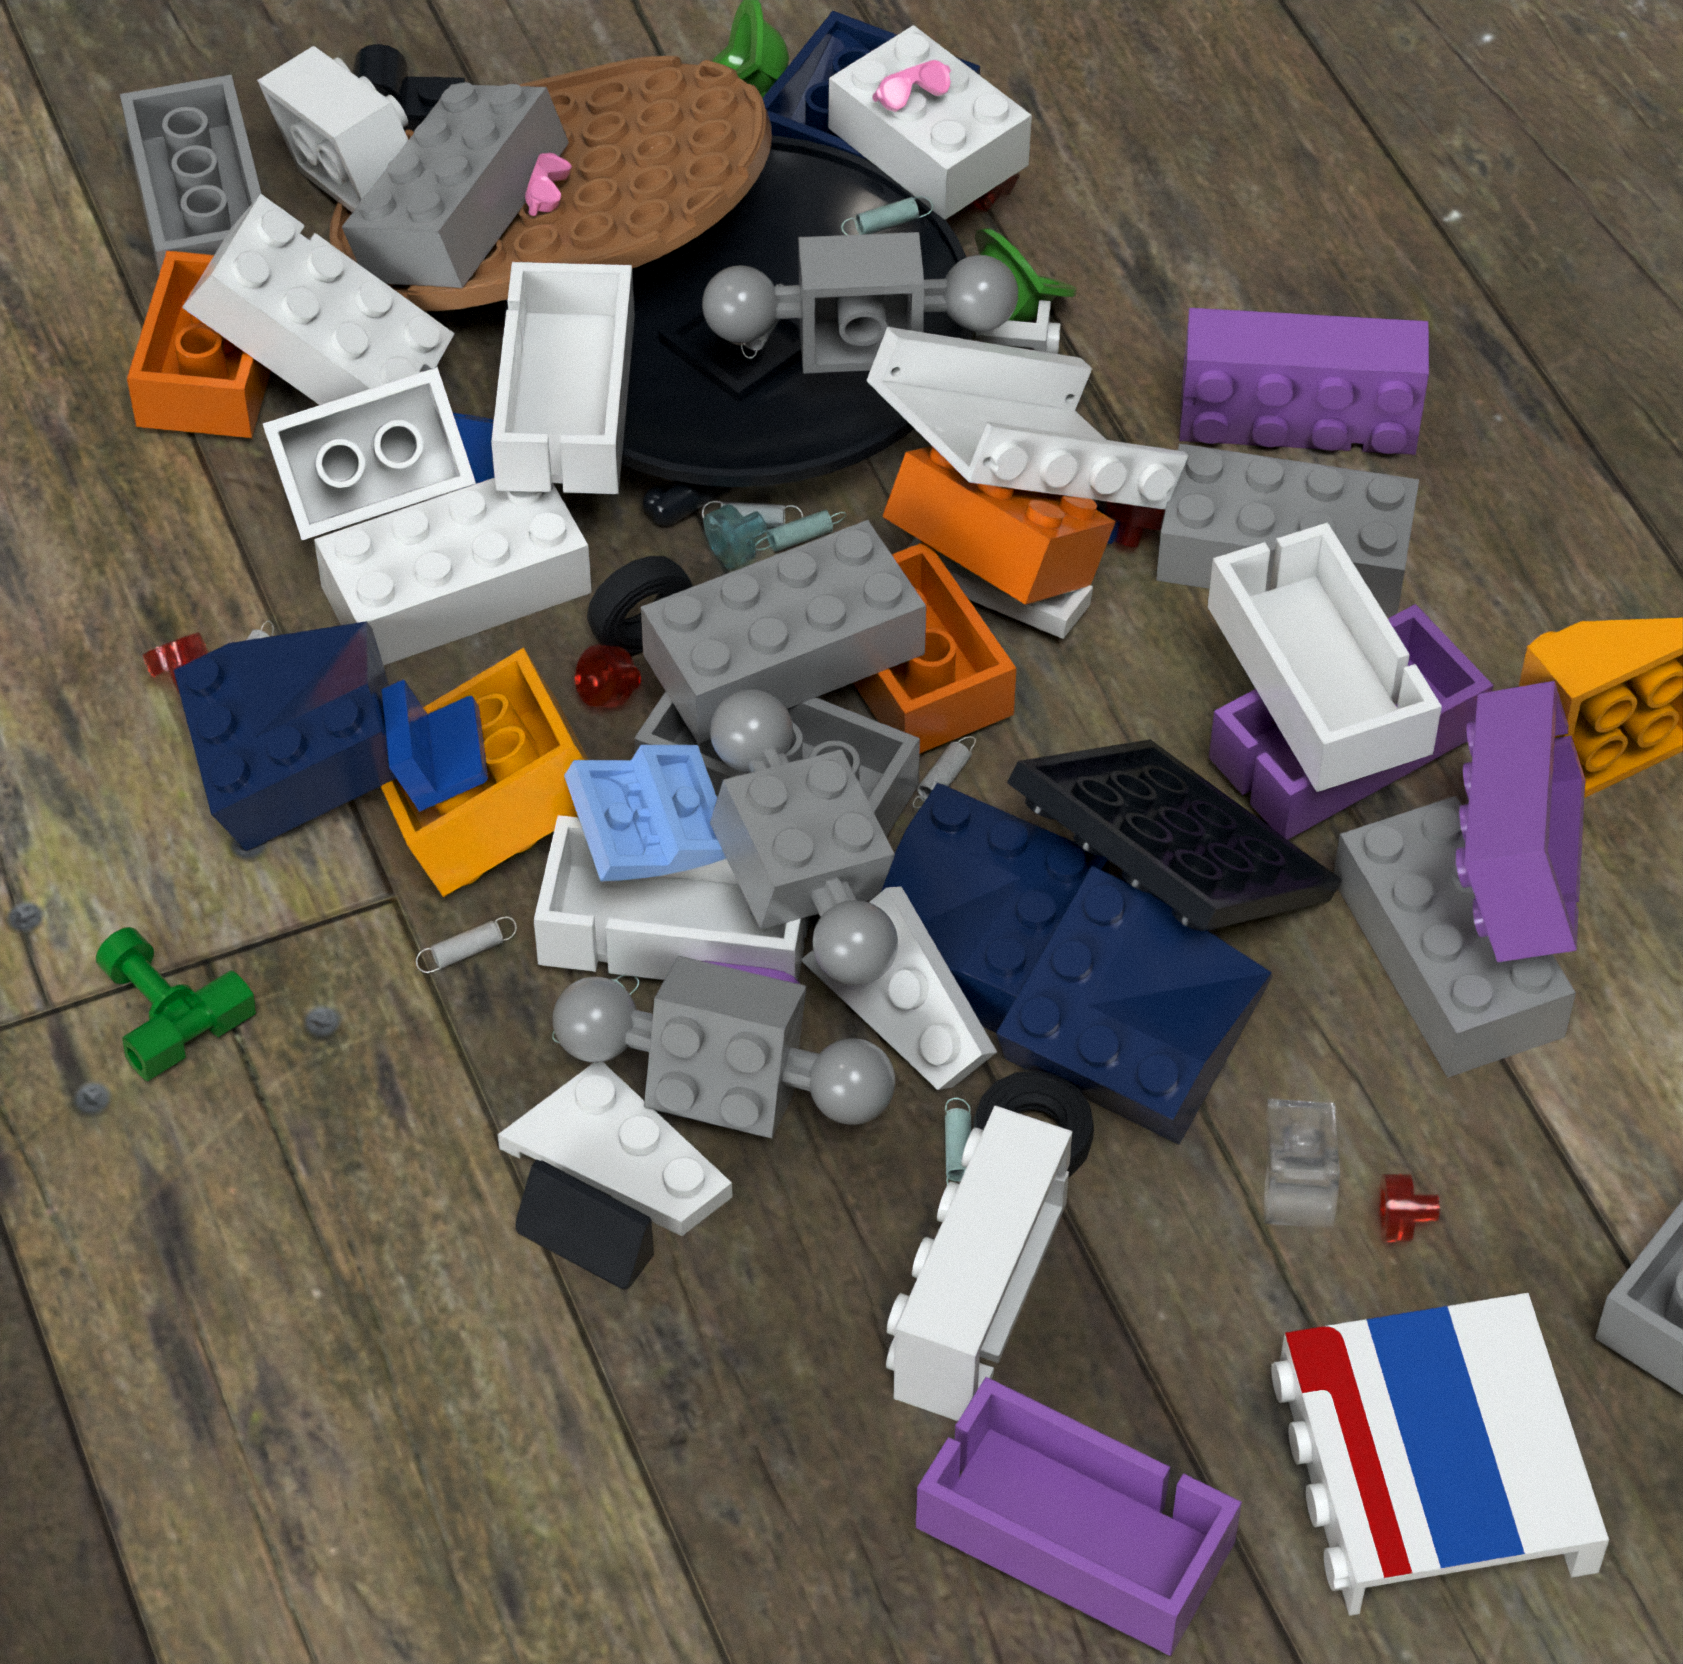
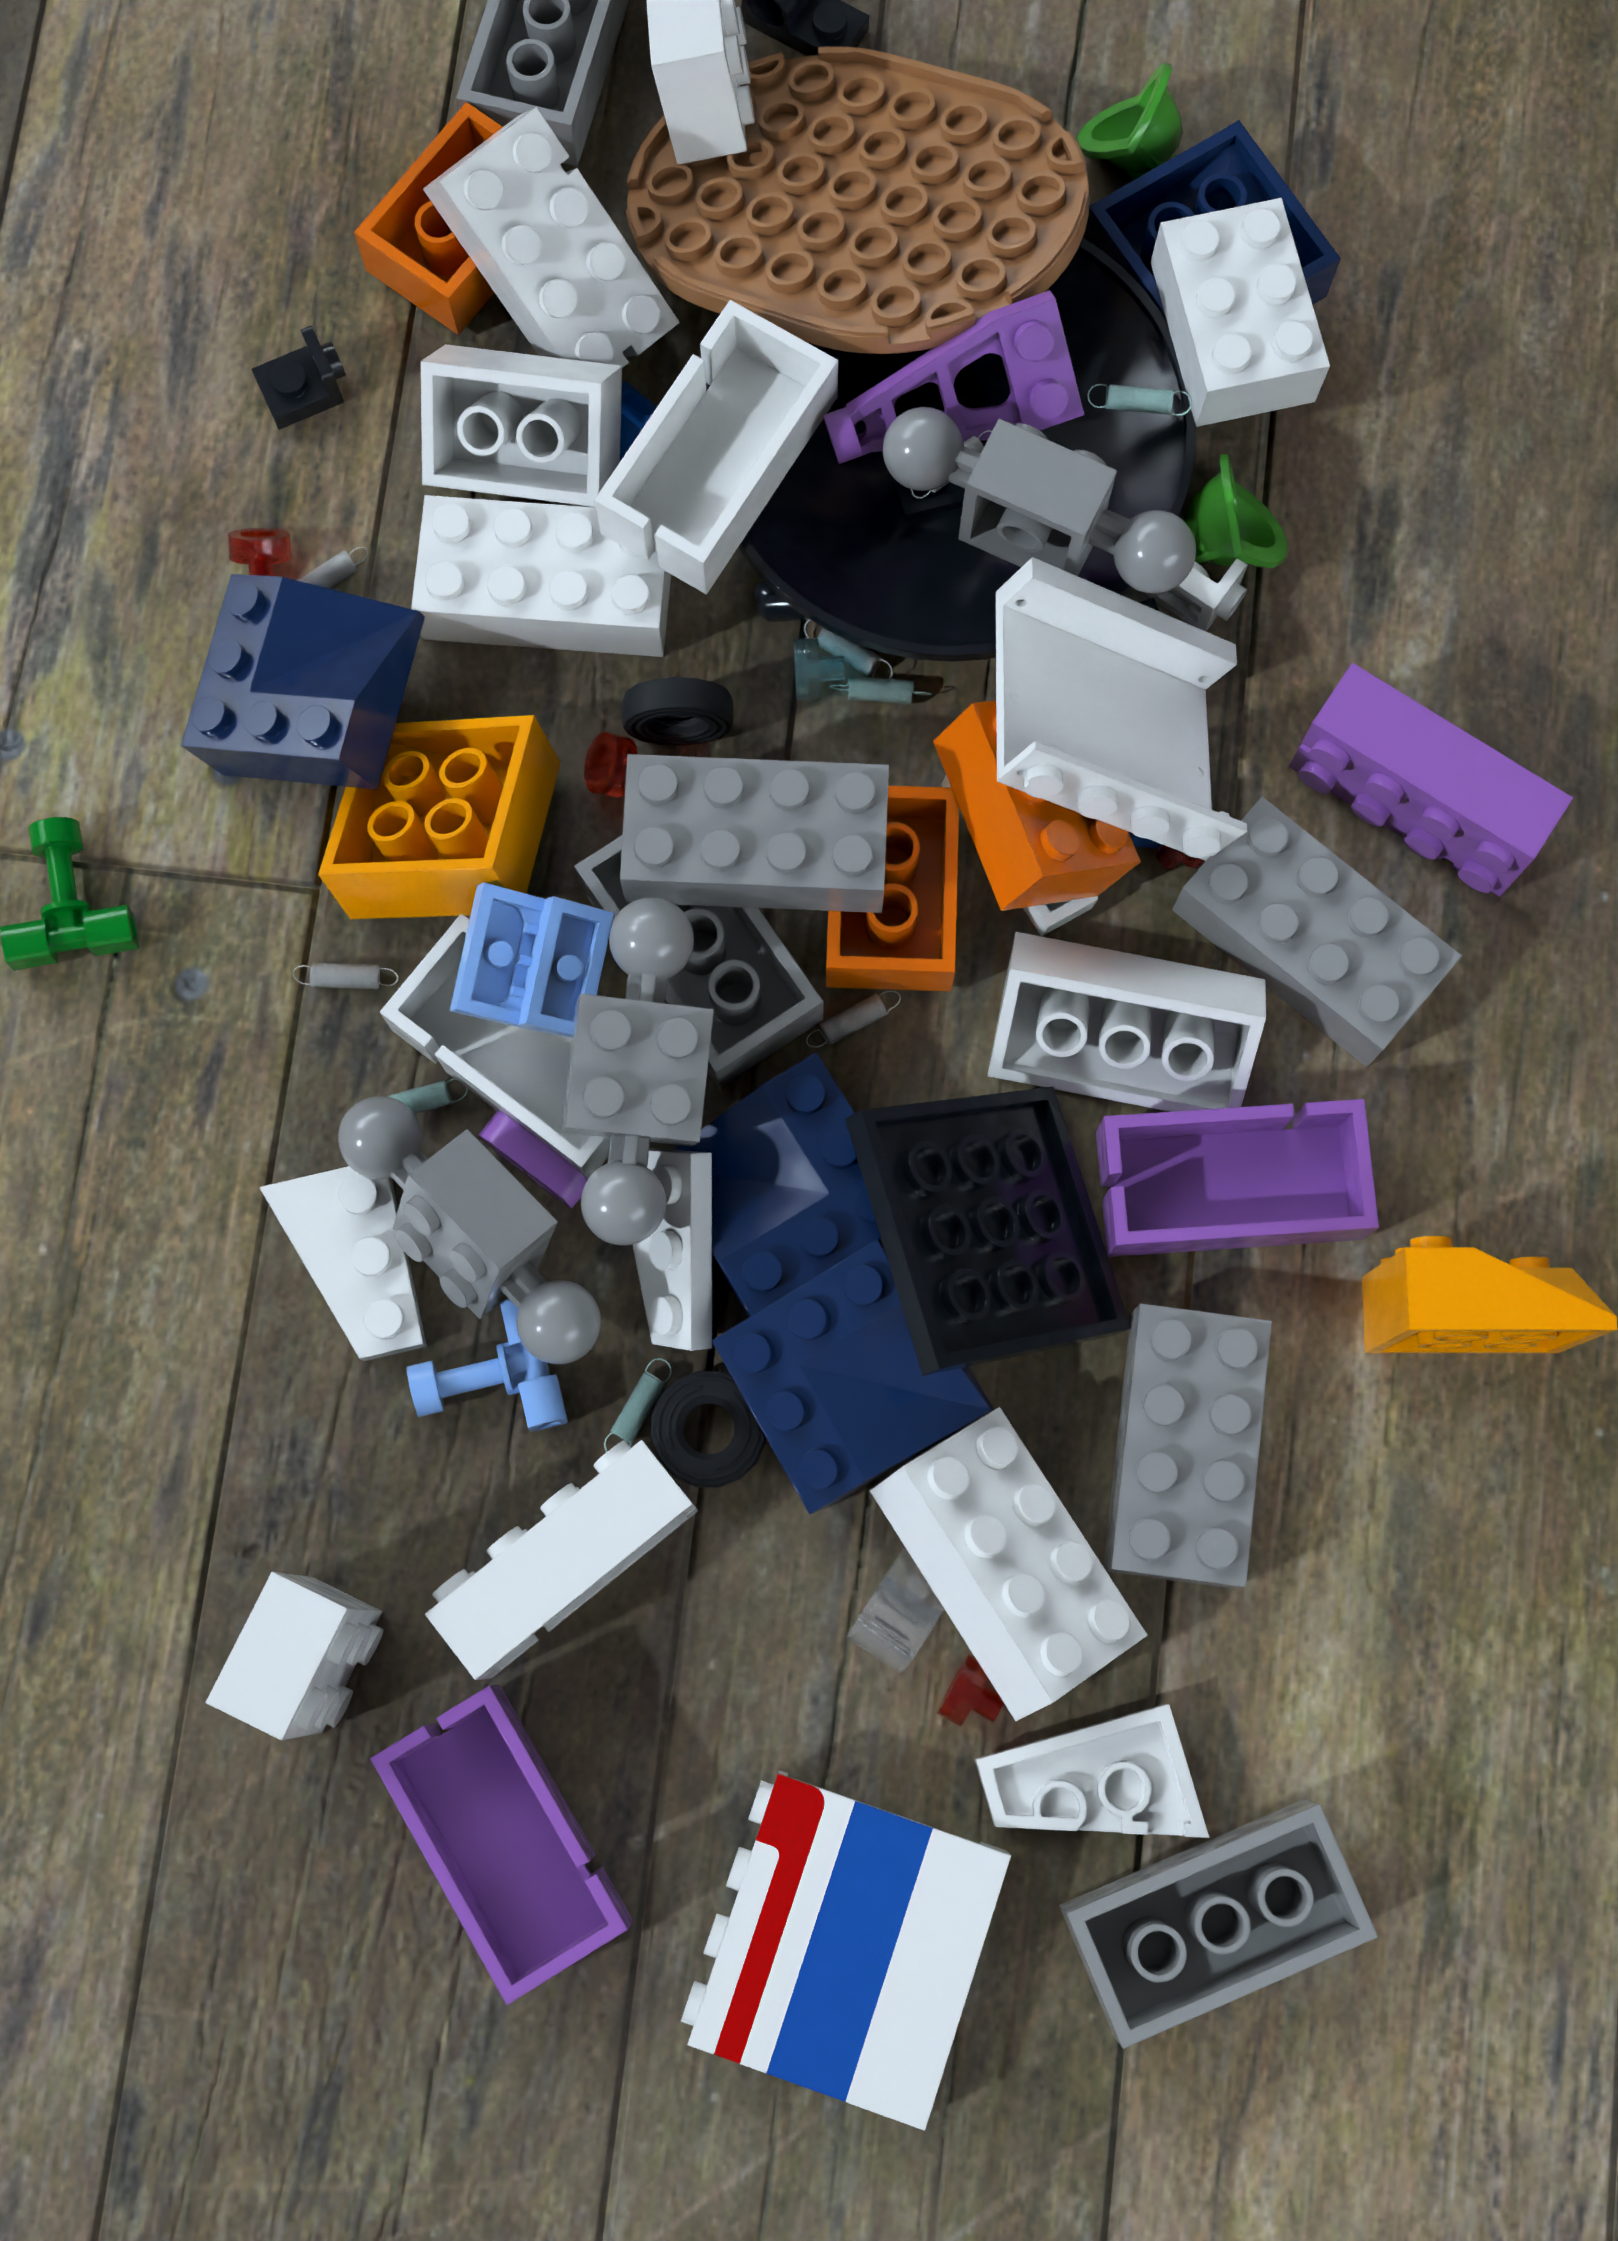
camera: 30 degrees right, 25 degrees up
(132, 525) = (301, 381): none -> black bracket
(435, 751) = (390, 783): blue panel -> none
(454, 185) = (754, 164): light grey brick -> none
(541, 191) = (821, 216): bright pink piece -> none
(584, 1225) = (279, 1317): black slope -> none
(785, 209) = (1035, 362): none -> medium lavender plate
(801, 1435) = (296, 1657): none -> white brick
(827, 1161) = (513, 1367): none -> light blue bar
(896, 88) = (1205, 278): bright pink piece -> none
(1144, 674) = (1126, 1026): none -> white slope
(1323, 657) = (1223, 1133): white piece -> none
(1366, 1078) = (1008, 1564): none -> white brick
(1523, 823) = (1288, 1419): medium lavender piece -> none
(1557, 1220) = (1100, 1777): none -> white wing

